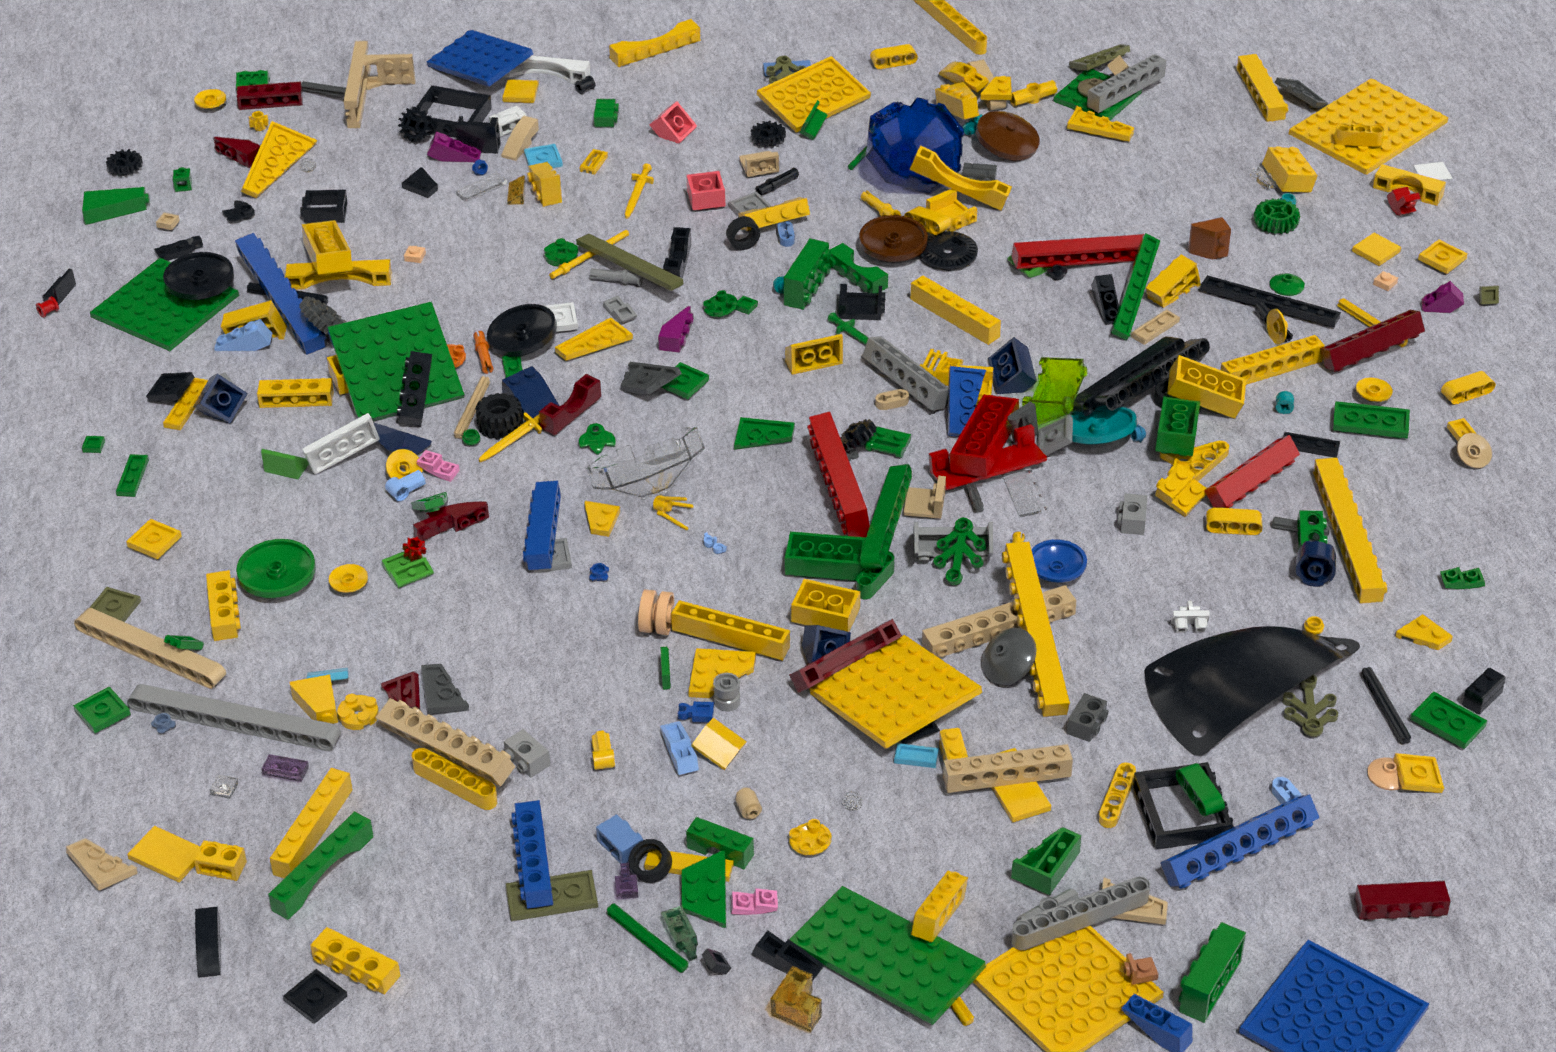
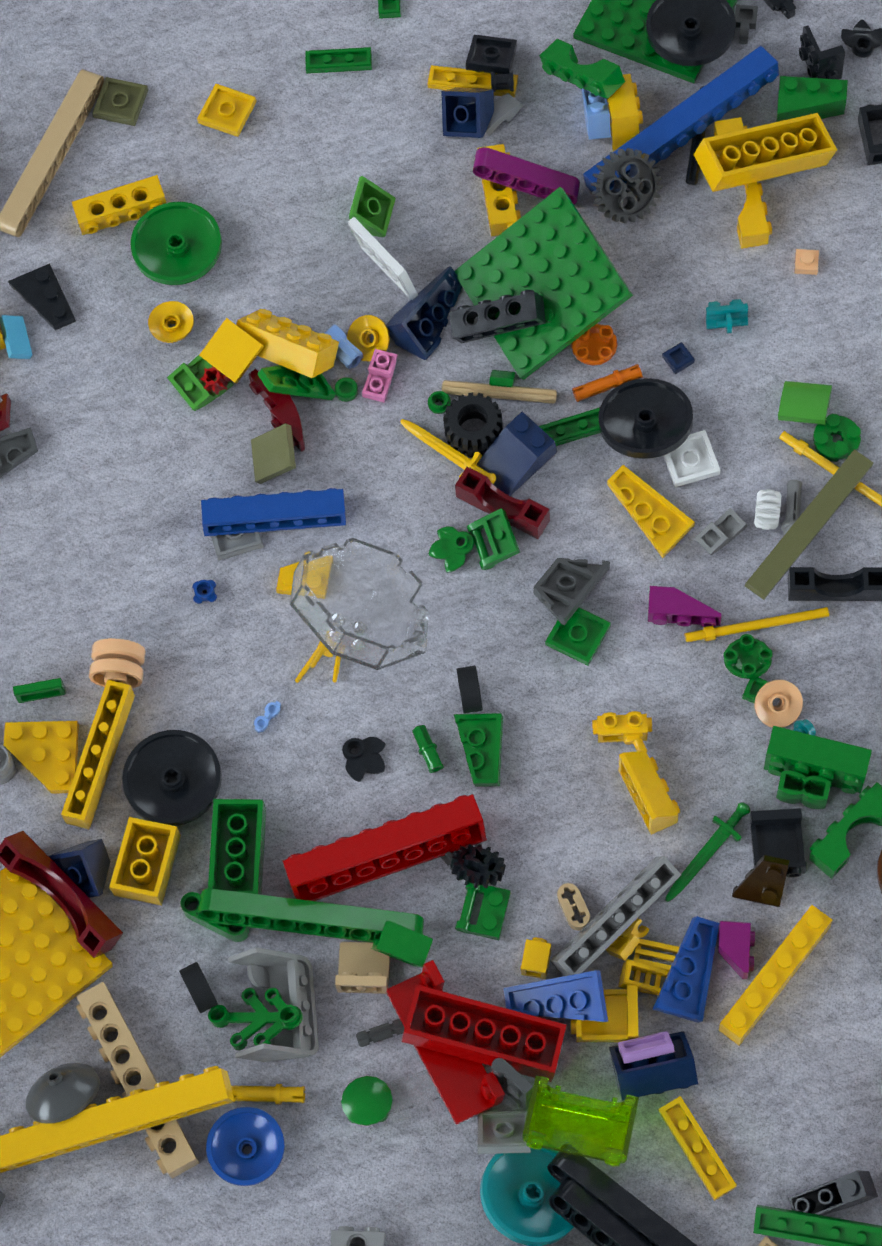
camera: 90 degrees right, 25 degrees up
(184, 642) = (61, 199): green tile -> none
(196, 348) = (599, 78): none -> green arch
(200, 379) = (502, 81): none -> black bush
(249, 222) = (821, 64): none -> black bracket
(282, 236) = (810, 95): none -> green wedge
(287, 659) = (45, 295): none -> black wing
(295, 368) = (523, 174): none -> magenta beam
(397, 502) = (290, 343): none -> yellow brick
(399, 523) = (231, 350): none -> yellow tile
(442, 485) = (346, 389): none -> green tile
(447, 290) = (726, 316): none -> teal hips
(462, 402) = (502, 378): none -> green tile
(472, 319) = (678, 358): none -> dark blue tile
(491, 521) = (273, 453): none -> olive tile
(530, 261) = (804, 402): none -> bright green slope
(596, 408) = (499, 536): none -> green plate
(611, 280) = (767, 509): none -> white gear
(697, 320) = (710, 633): none -> yellow bar
(719, 417) = (469, 689): none -> black tyre
(757, 495) = (366, 760): none -> black plate
(758, 460) = (427, 749): none -> green axle
(758, 589) = (172, 777): none -> black dish
(759, 291) = (788, 708): none -> light nougat dish
(763, 360) = (627, 728): none -> yellow brick
(826, 284) = (809, 790): none -> green brick
(889, 305) = (764, 882): none -> dark brown wing
(916, 470) = (403, 944): none -> green panel
(929, 416) = (536, 958): none -> yellow brick
(933, 326) = (735, 945): none -> magenta slope
(938, 587) = (198, 987): none -> black tyre
(954, 347) = (689, 976): none -> blue wing
(1001, 365) = (646, 1047): none -> lavender tile
(1026, 503) = (367, 1101): none -> green dish
(1081, 351) = (697, 1148): none -> yellow plate

